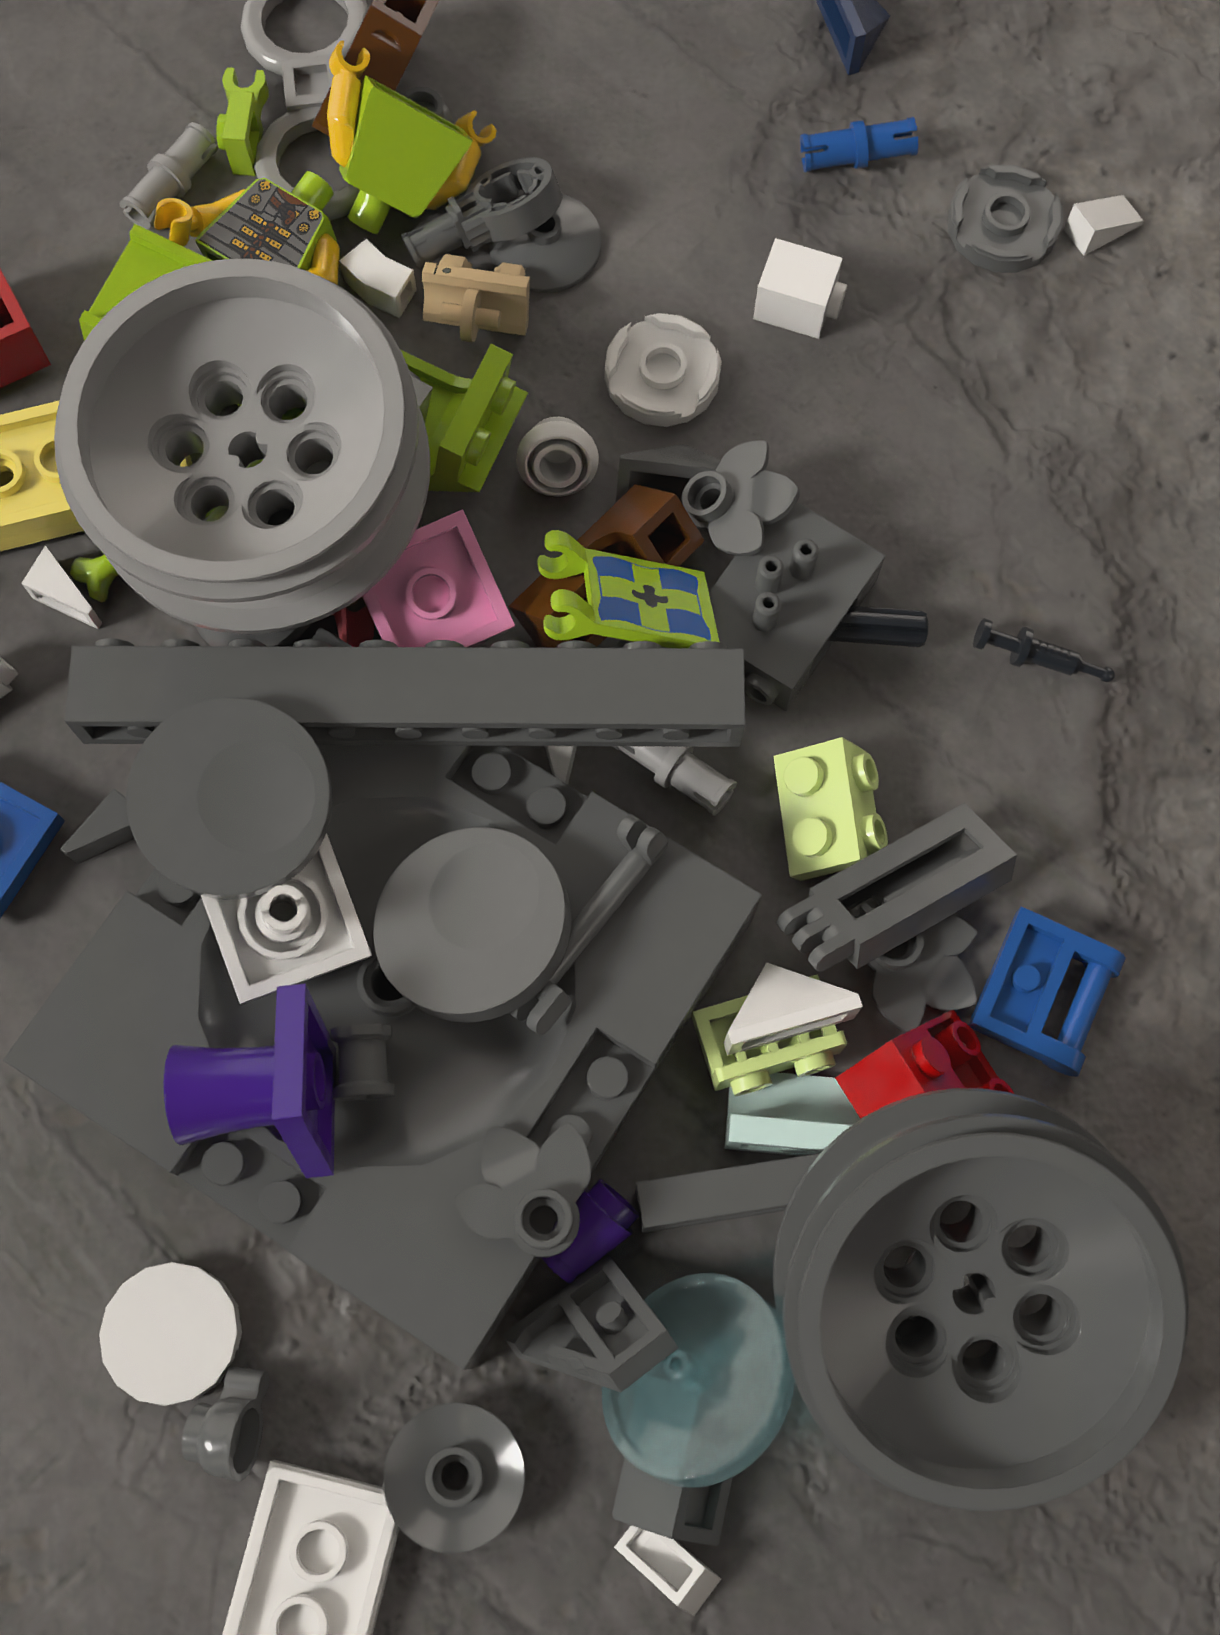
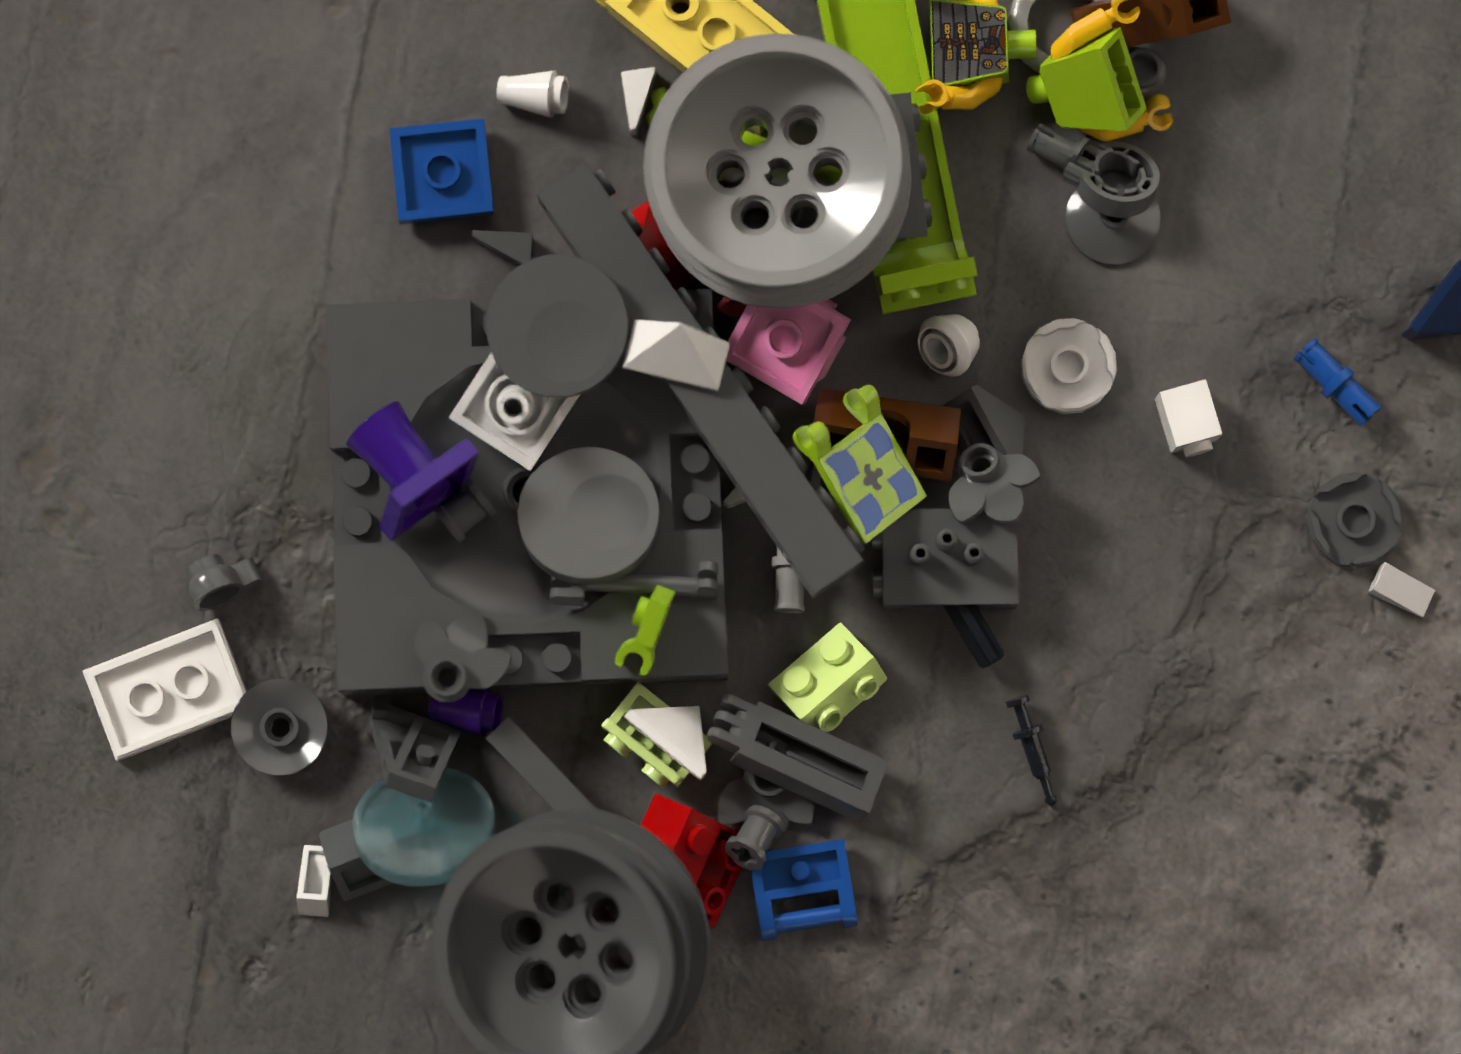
camera: 55 degrees right, 10 degrees up
(170, 1334) = (246, 510): white tile -> none
(360, 686) = (676, 353): none -> white slope
(378, 278) = (999, 131): white piece -> none
(476, 297) = (1024, 209): tan hips -> none
(645, 929) = (650, 618): none -> lime plate
(789, 1116) = (616, 780): light aqua panel -> none
(962, 998) = (755, 837): none -> dark grey bush

